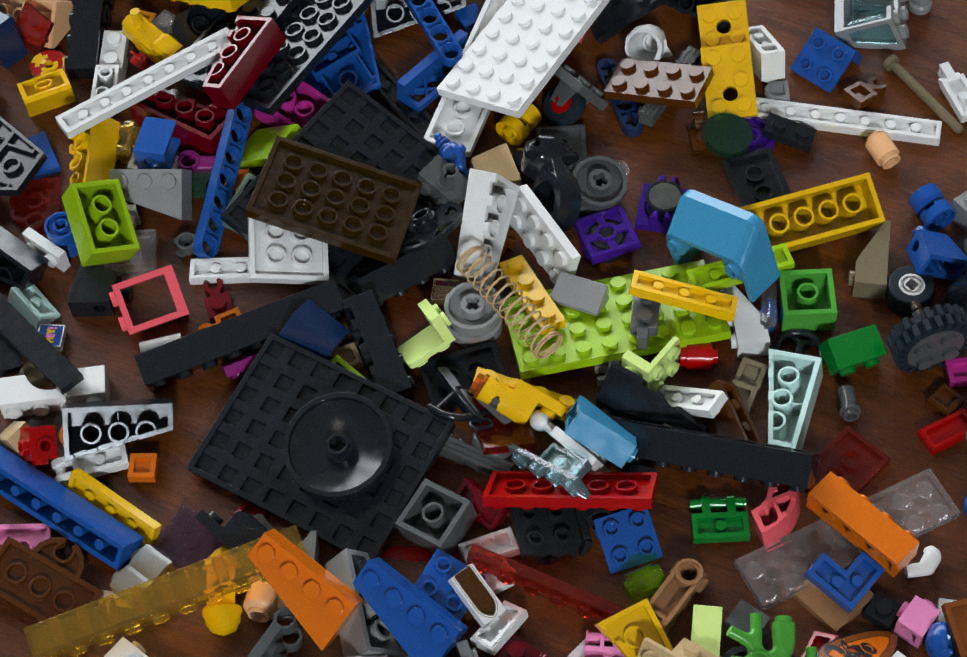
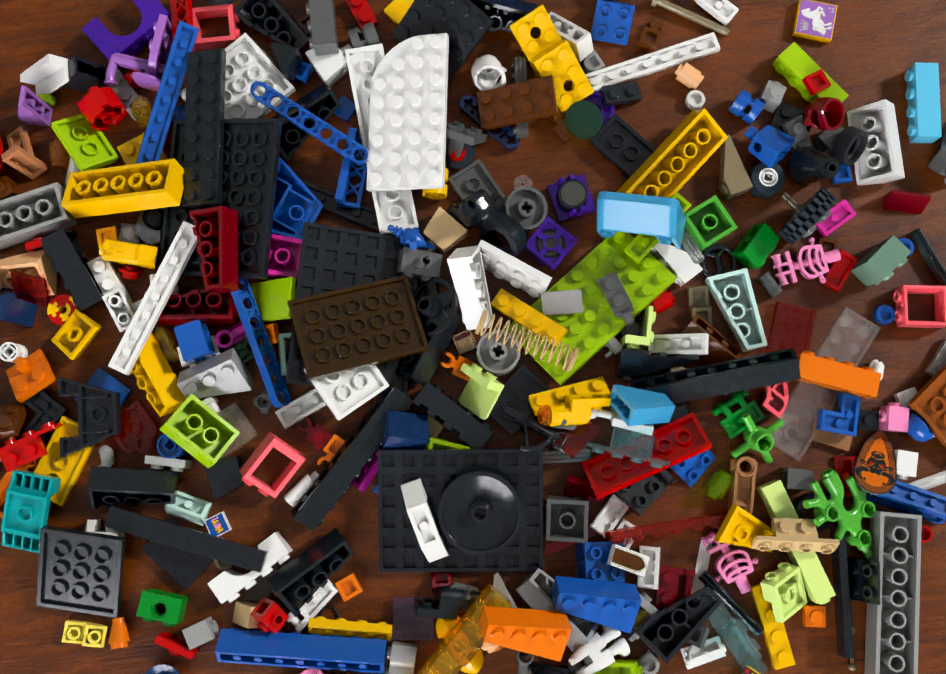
camera: 35 degrees left, 25 degrees up
(266, 429) = (422, 521): none -> white slope
(414, 310) = (456, 365): none -> orange plate
(683, 295) = (636, 272): yellow plate -> none
(731, 557) = (757, 438): none -> bright green bar
(880, 177) = (694, 100): none -> white tile
(880, 396) = (819, 259): none -> bright pink torso

